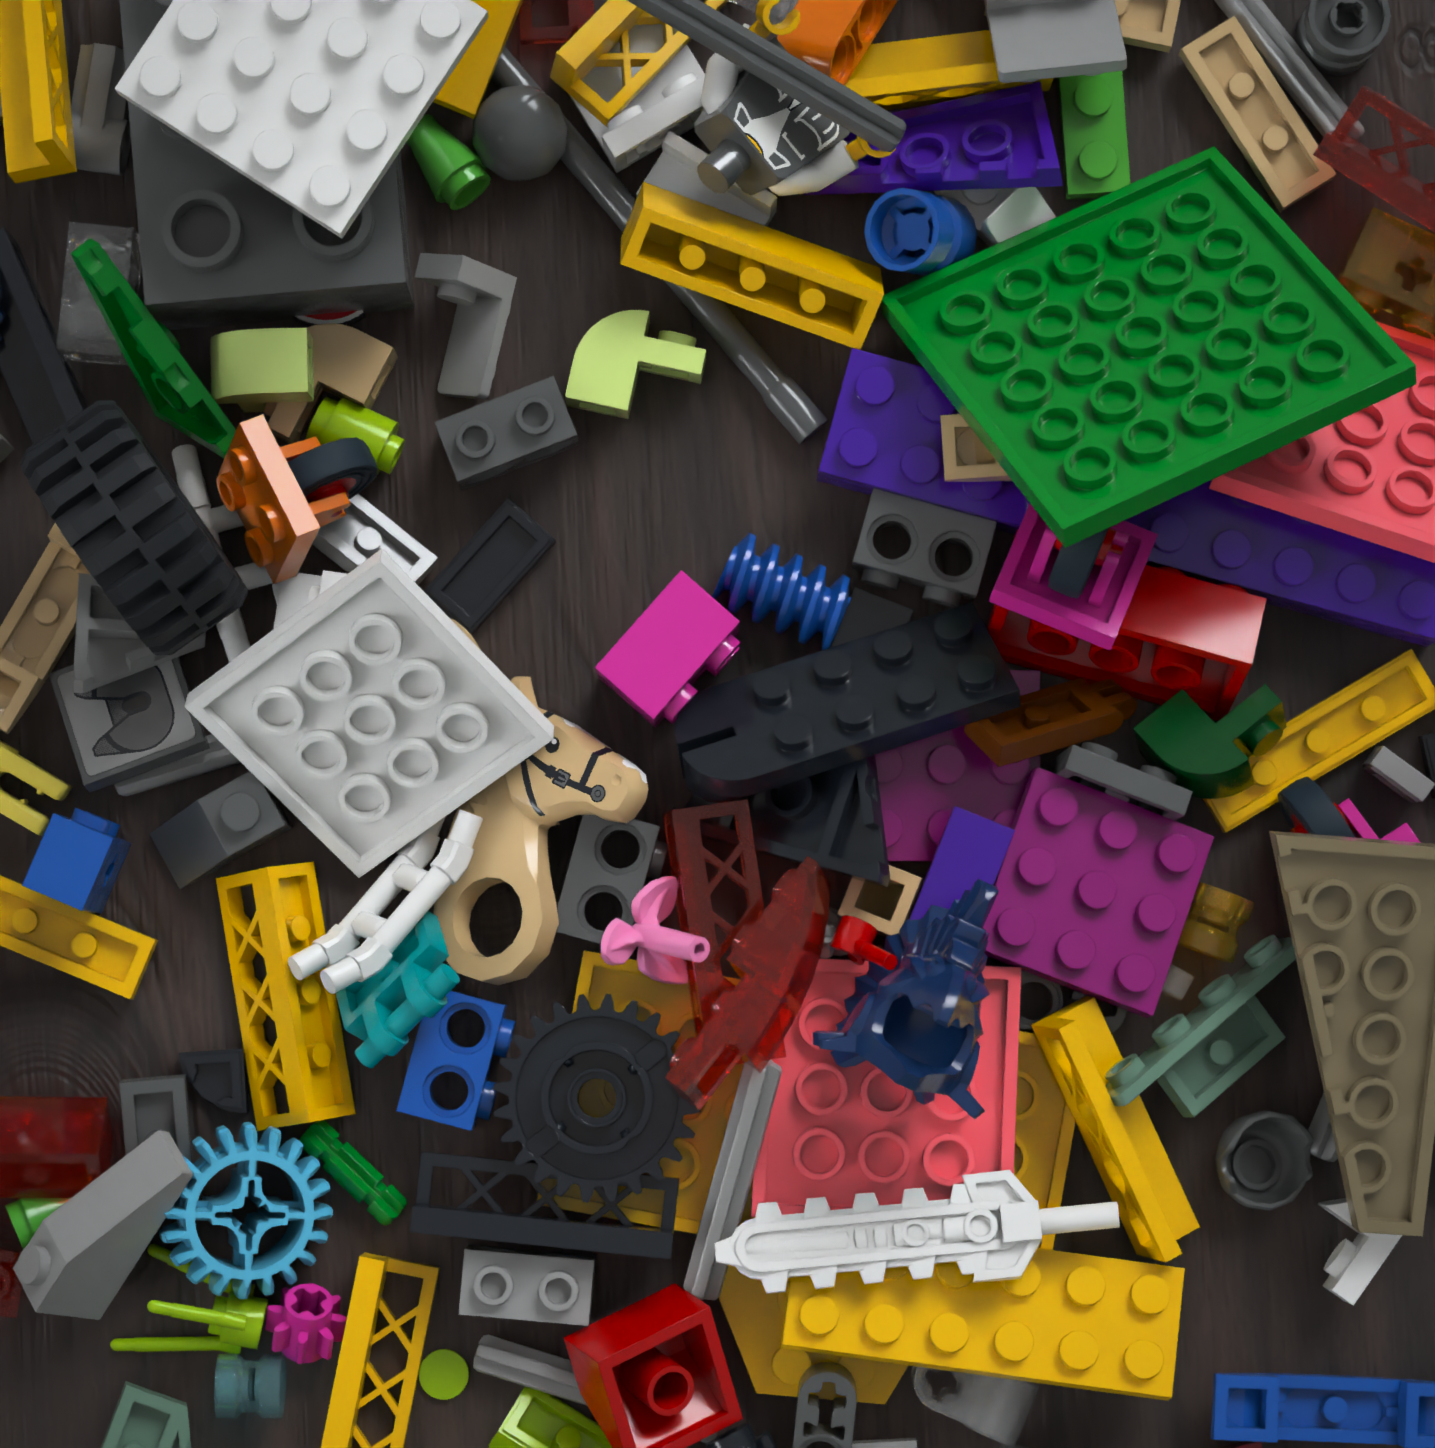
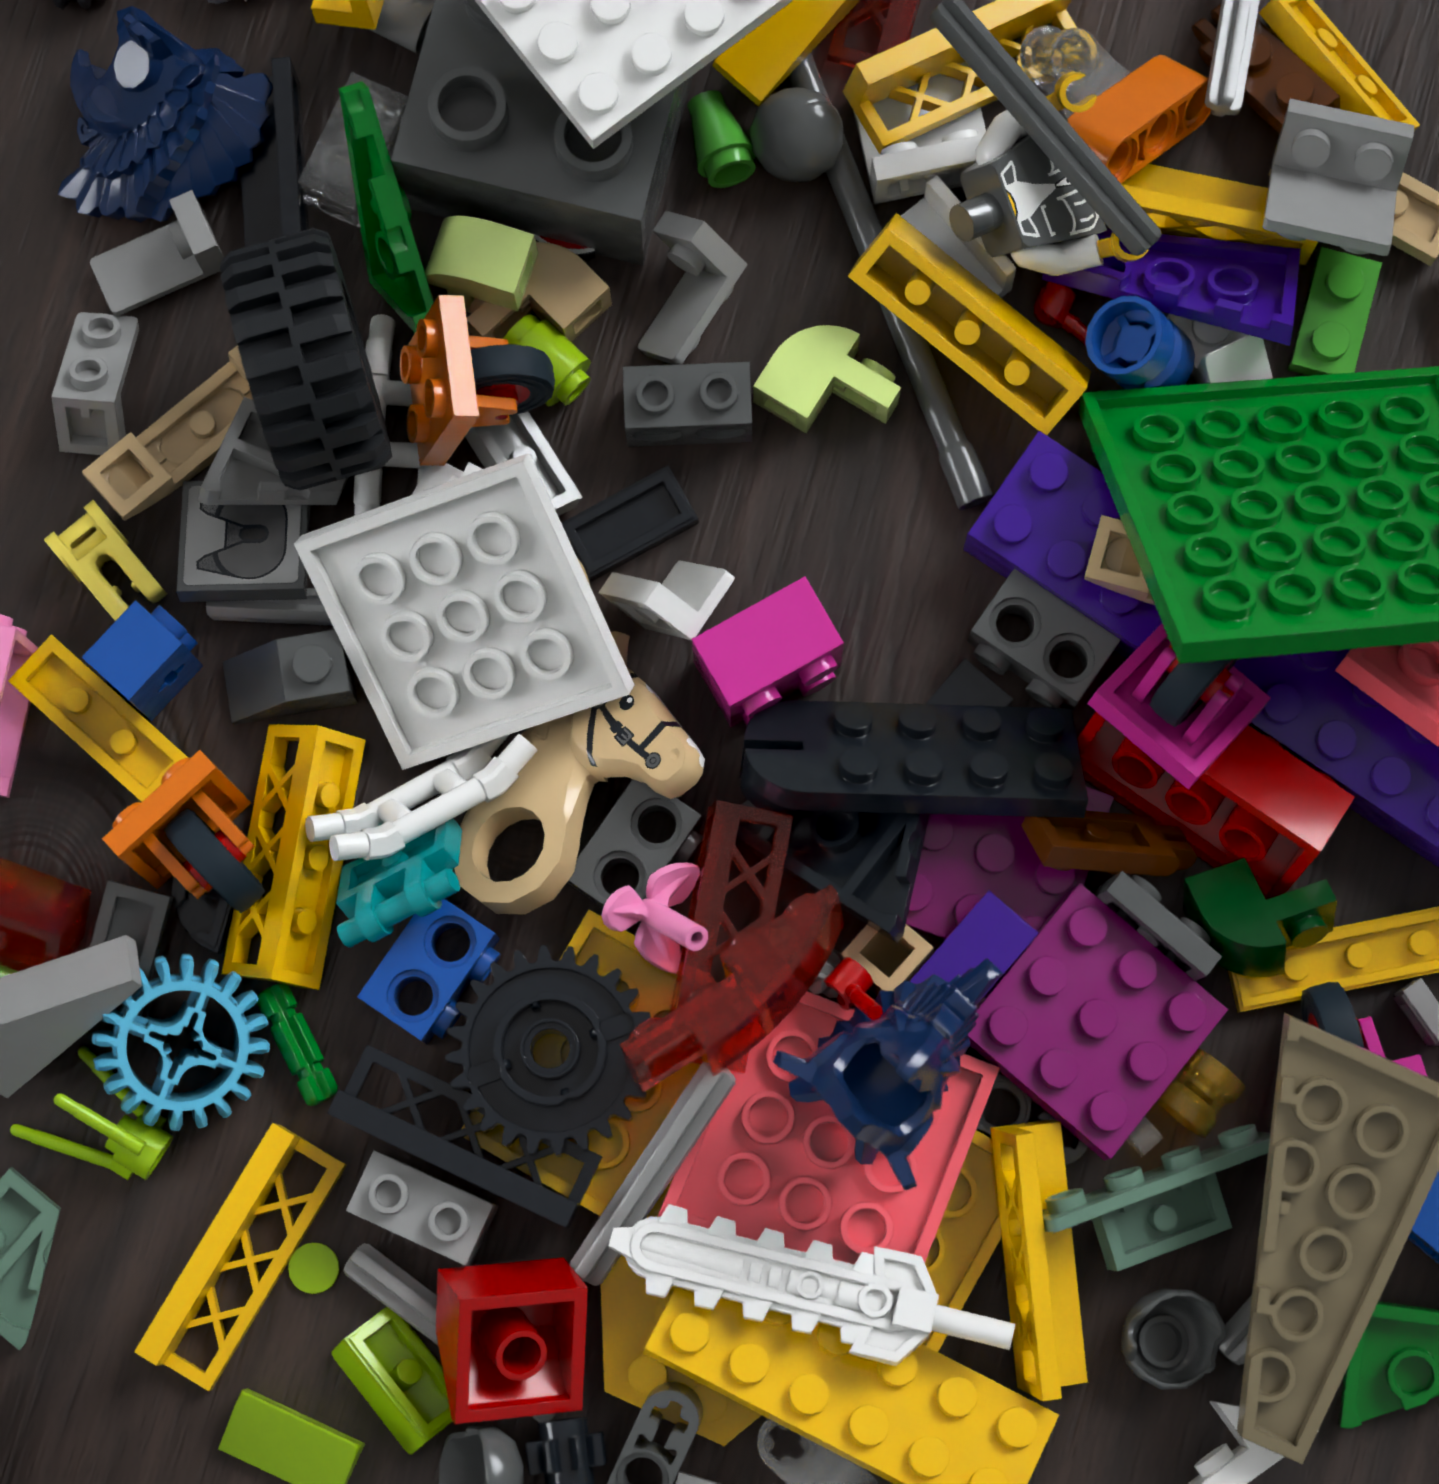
camera: 25 degrees right, 5 degrees down
(173, 1007) = (190, 834): none -> orange plate
(235, 1386) = (125, 1212): clear light blue wheel -> none
(306, 1323) = (199, 1170): dark pink gear -> none
(568, 628) = (675, 606): none -> white panel
(784, 591) = (895, 638): blue piece -> none
(823, 218) = (1053, 310): none -> red hand

